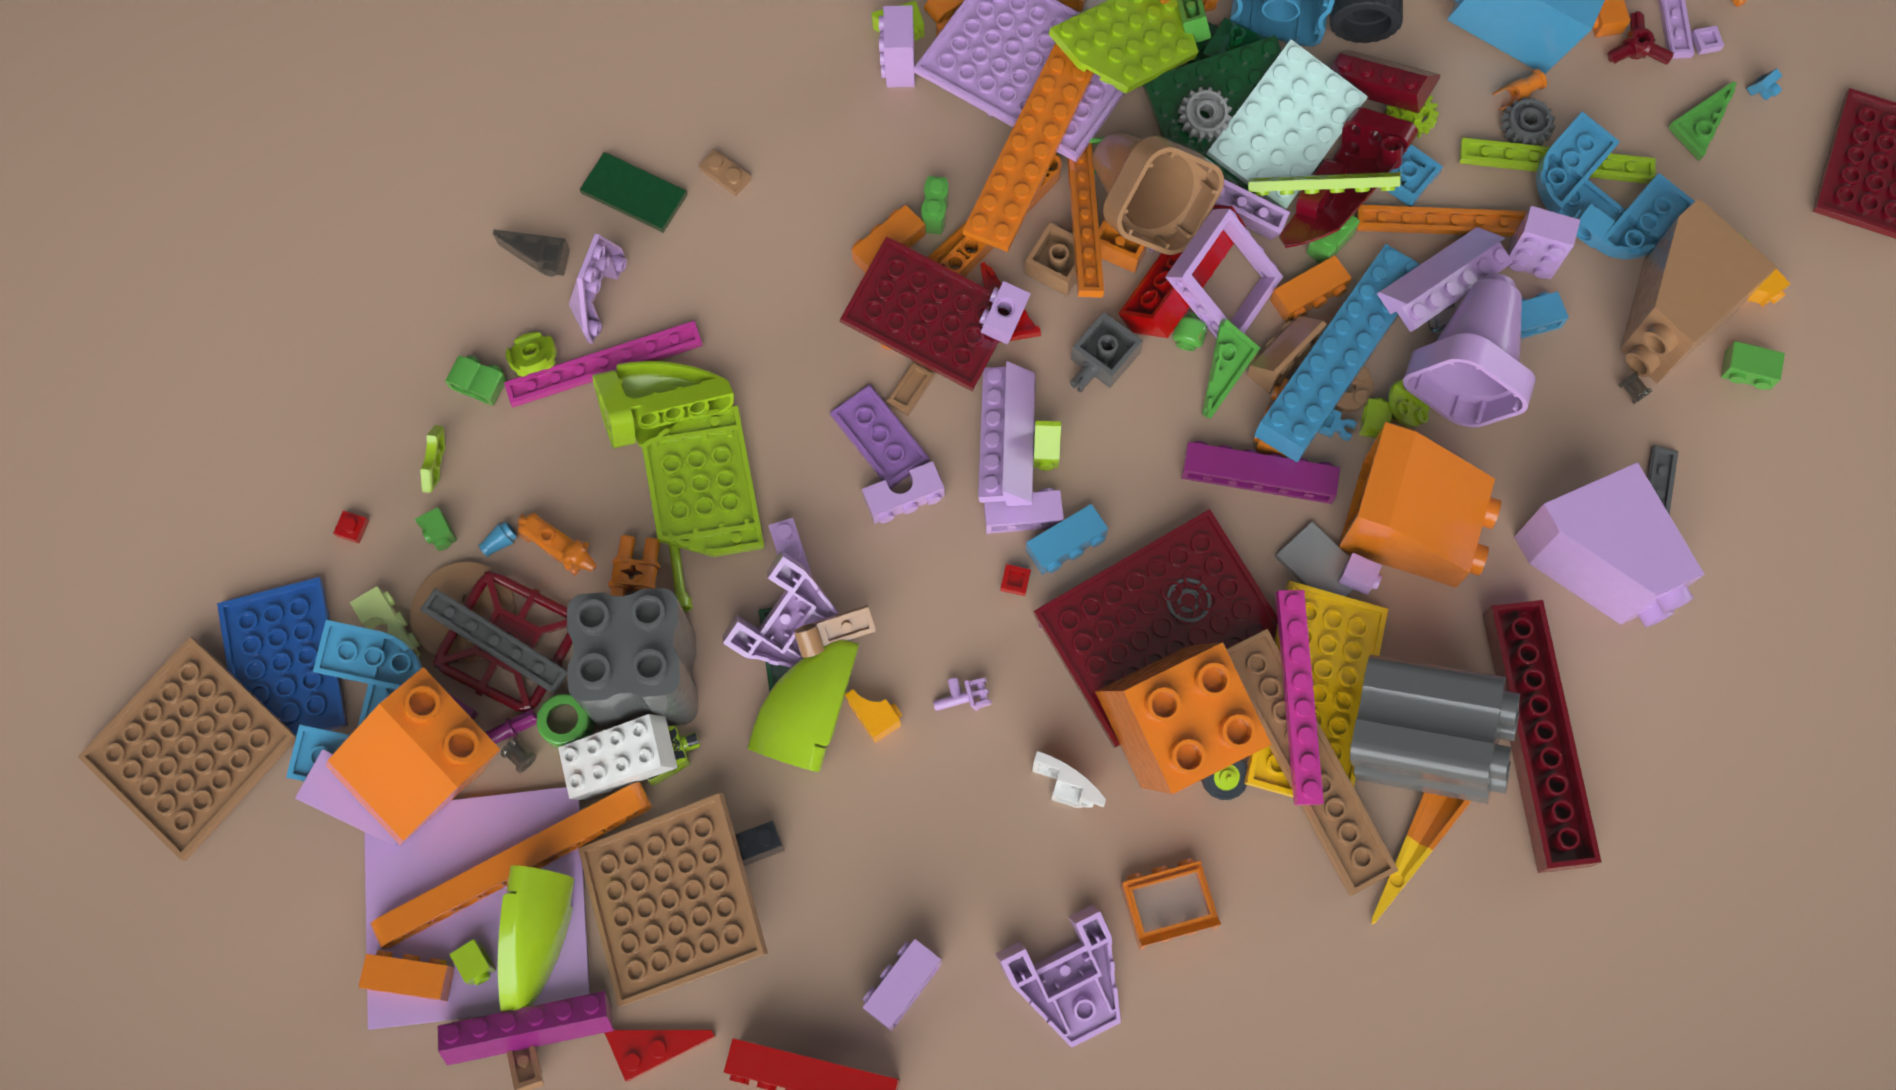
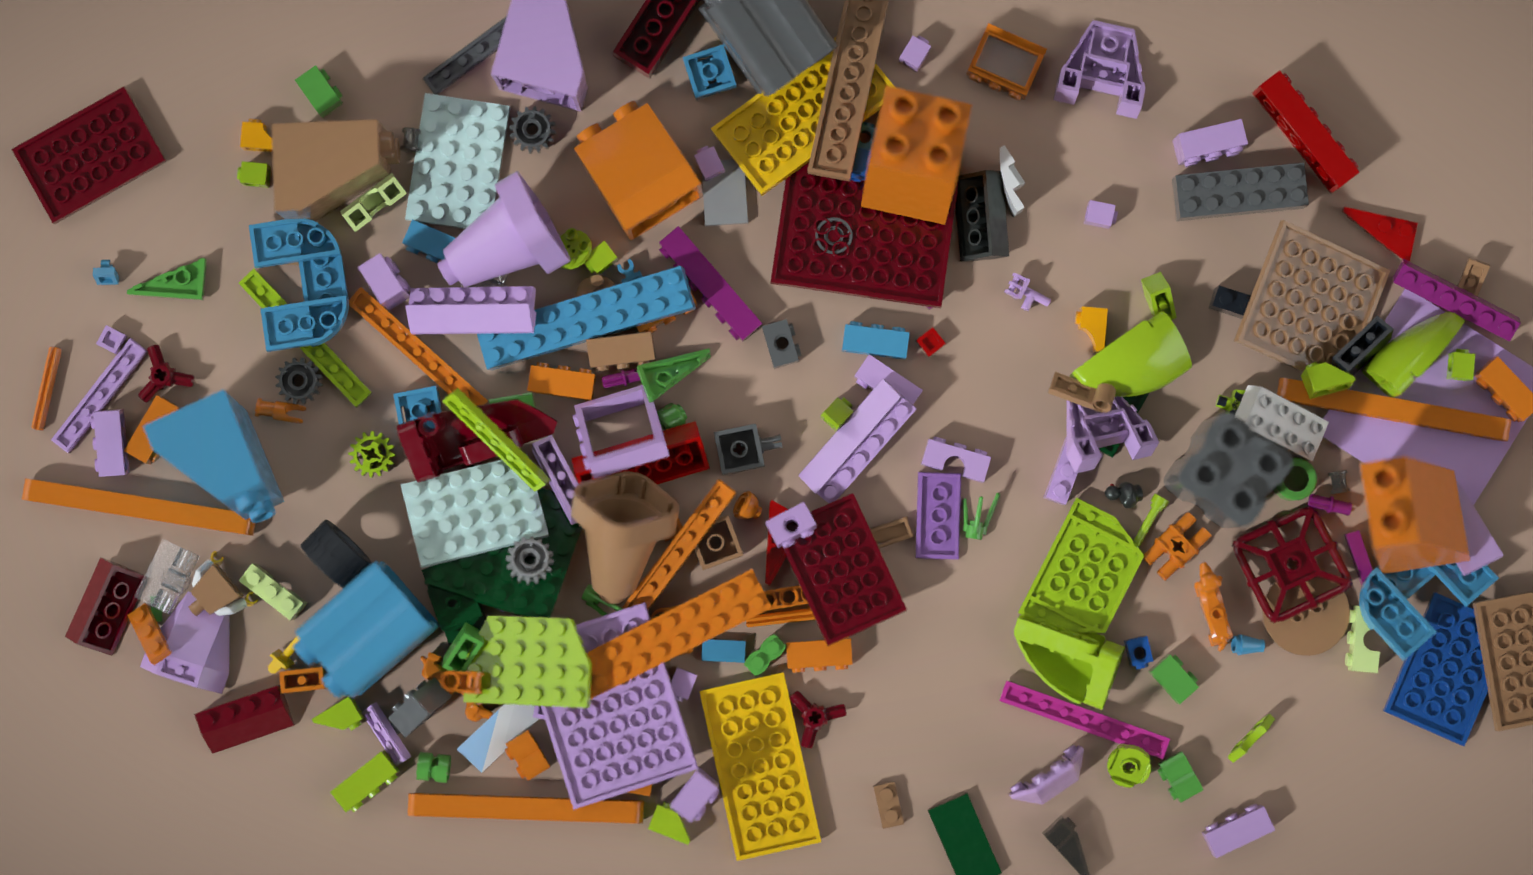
camera: 140 degrees left, 15 degrees up
(351, 527) = (1338, 735): red plate -> none
(387, 374) = (1237, 830): none -> lavender brick
(436, 529) = (1283, 683): bright green brick -> none
(494, 641) = (1302, 567): dark grey tile -> none
(546, 458) = (1174, 678): none -> bright green brick
(588, 895) = (1363, 346): none -> black brick
(602, 465) = (1131, 645): none -> blue brick
(603, 830) = (1325, 379): none -> lime slope
(717, 587) = (1126, 492): none -> pearl dark grey animal
(832, 792) = (1158, 295): none -> lime slope
(832, 962) = (1240, 191): none -> dark grey brick
(837, 449) = (975, 529): none -> bright green plant
(856, 191) = (807, 708): none -> dark red bush
(863, 120) = (760, 766): none -> yellow plate
(953, 827) = (1100, 214): none -> lavender brick
(970, 187) = (723, 651): none -> dark azure tile
(985, 133) = (683, 683): none -> lavender brick
(1056, 311) = (747, 506): none -> orange brick
(1065, 731) = (981, 216): none -> pearl dark grey slope
(1143, 458) = (778, 330): none -> dark grey brick
(1264, 840) = (915, 52): none -> lavender brick
(1266, 329) = (623, 377): none -> magenta axle
(1299, 698) = (824, 114): dark pink plate -> none
(1386, 80) = (371, 493): dark red slope -> none
(1442, 649) = (703, 71): none -> dark azure brick
(1543, 467) = (524, 121): none -> dark grey gear
(1581, 407) = (456, 160): none -> light aqua plate
(1592, 225) = (338, 267): dark azure brick -> none
(1615, 307) = (367, 205): none -> yellowish green arch

